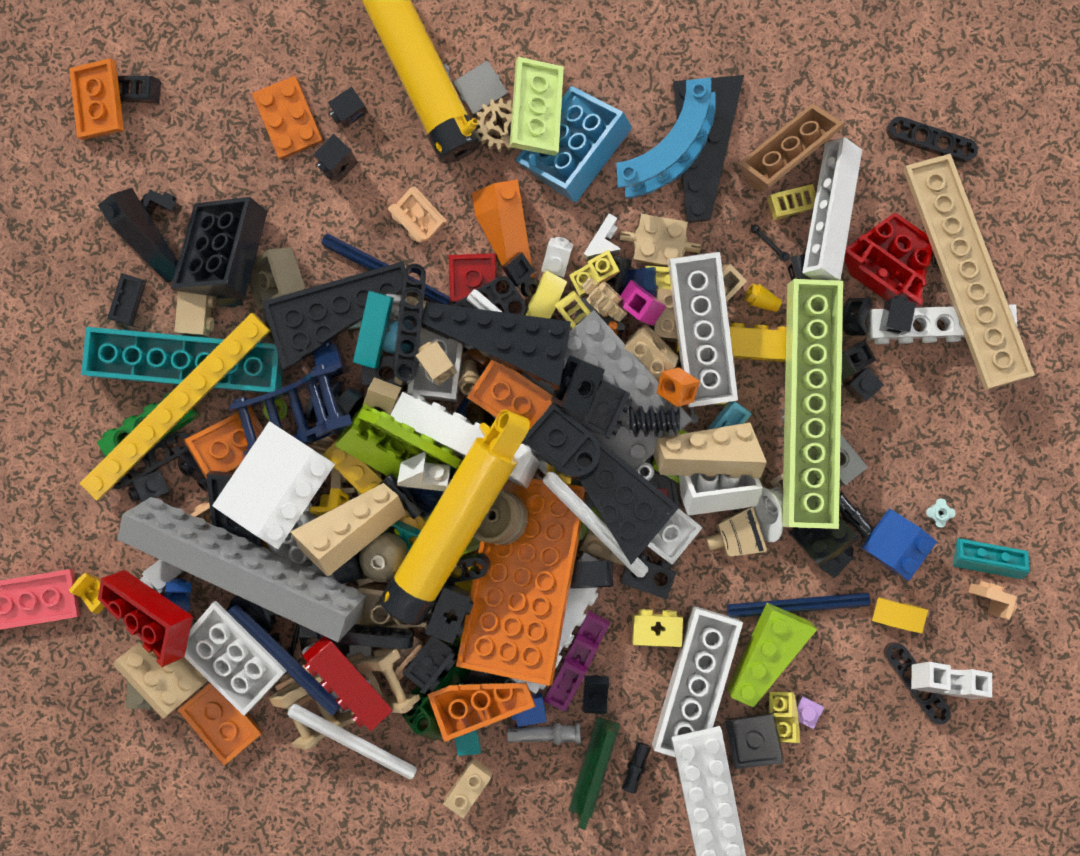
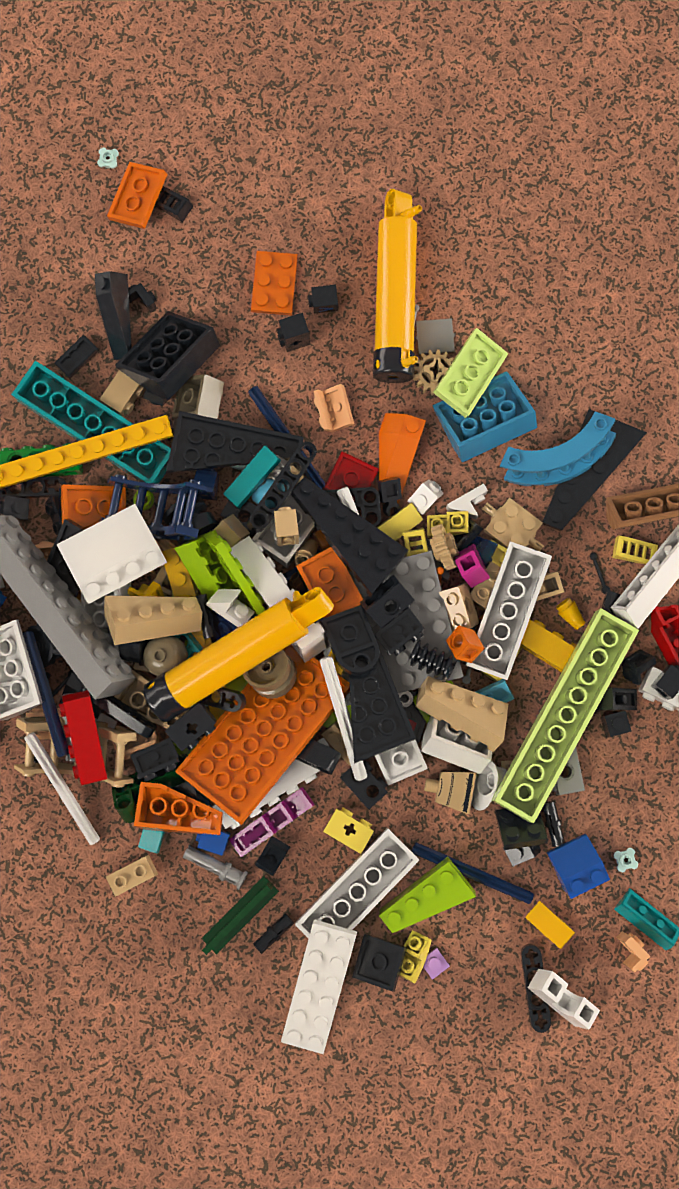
camera: 30 degrees right, 5 degrees down
(51, 78) = (110, 163): none -> light aqua plate

